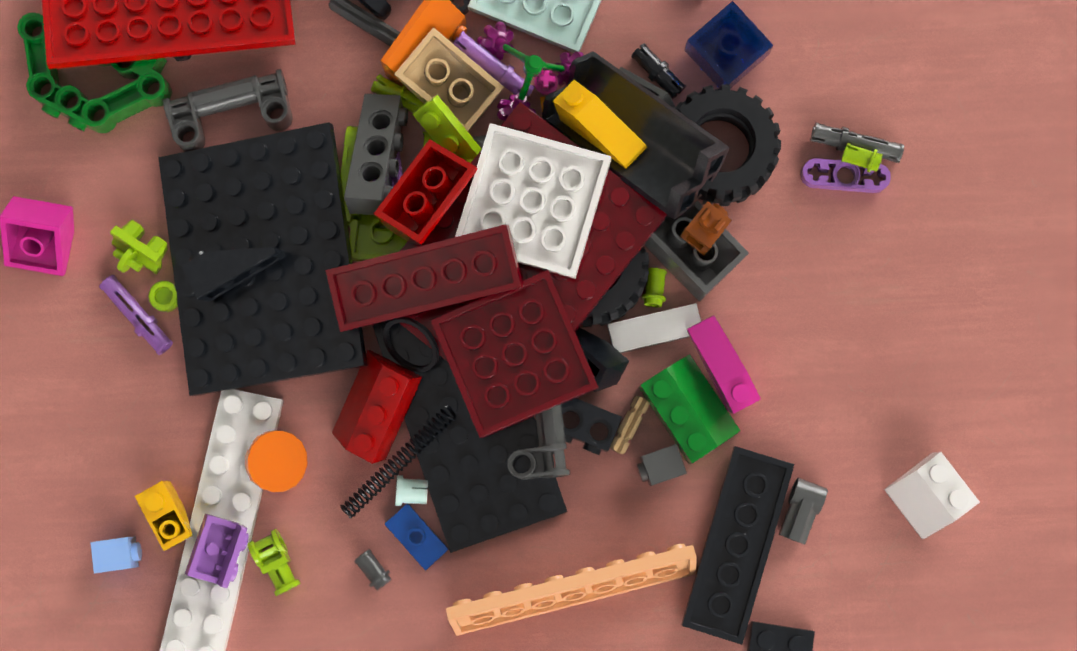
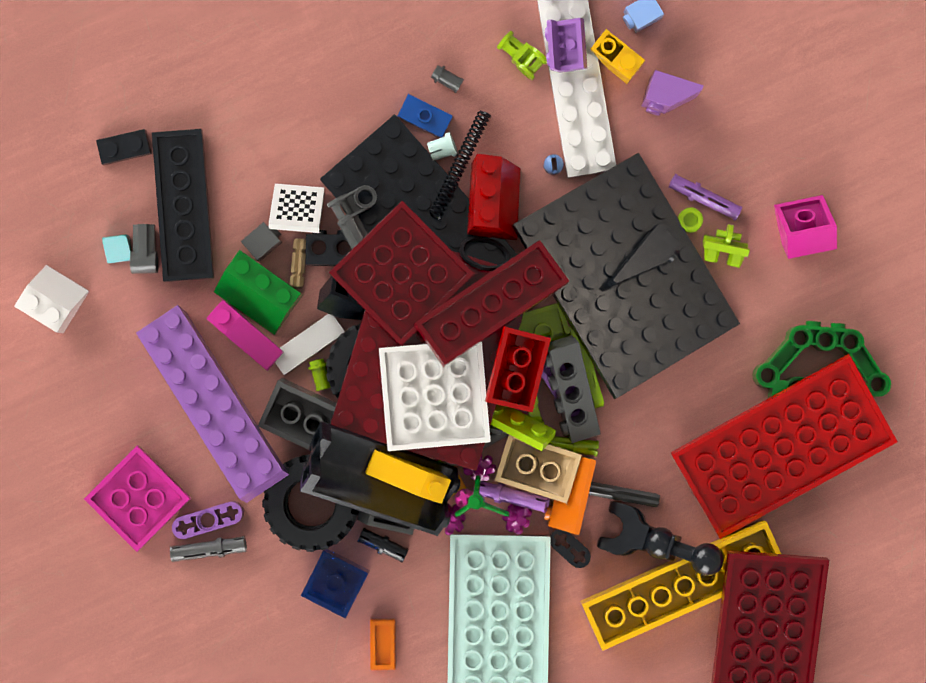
camera: 155 degrees right, 5 degrees up
(125, 448) = (668, 92): none -> medium lavender slope
(186, 112) = (709, 389): dark grey piece -> none
(276, 461) = (552, 129): orange tile -> none
(298, 422) = (548, 164): none -> medium blue hinge
(572, 590) = (283, 129): light nougat plate -> none
(607, 487) = (296, 208): none -> white tile
(706, 227) = (296, 430): dark orange brick -> none
(791, 297) = (212, 404): none -> medium lavender brick
(833, 524) = (117, 248): none -> slope
(862, 157) = (199, 536): lime pin -> none
(916, 230) = (137, 498): none -> dark pink plate

